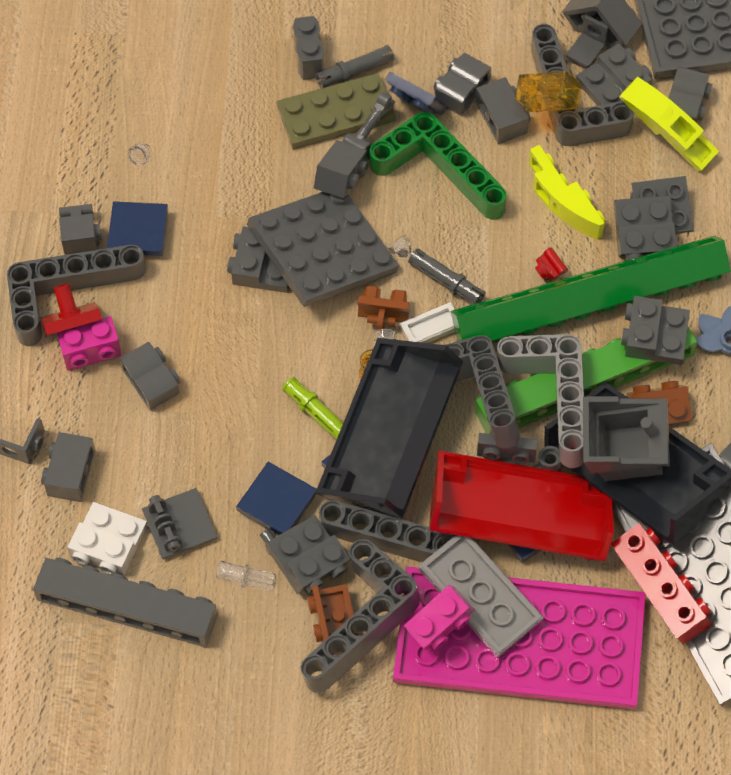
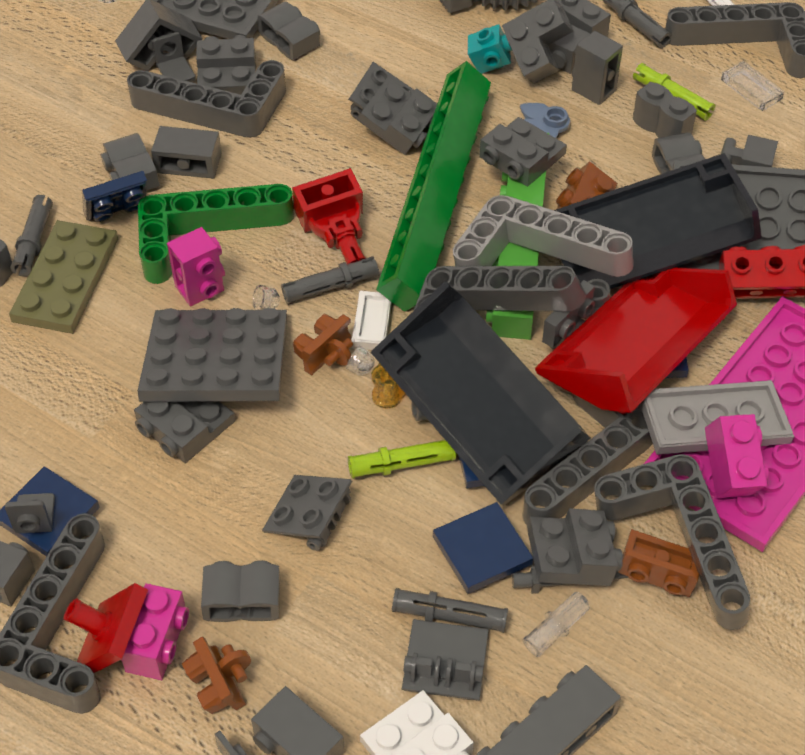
camera: 60 degrees left, 10 degrees down
(85, 398) = (210, 662): none -> dark orange hips
(115, 220) = (31, 513): none -> dark grey bracket
(212, 495) = (405, 601): none -> dark grey pin
(240, 376) = (310, 508): none -> dark grey hinge
(340, 169) = (143, 295): dark grey brick -> none
(382, 106) = (119, 274): dark grey brick -> none
(387, 185) = (196, 266): none -> dark pink brick
(507, 242) = (332, 211): none -> red brick
(548, 91) = (211, 96): clear yellow brick -> none
(550, 265) = (382, 198): red plate -> none
(564, 200) = (317, 157): neon yellow slope -> none
(625, 436) = (639, 201): dark grey piece -> none
(670, 121) = (305, 41): neon yellow slope -> none

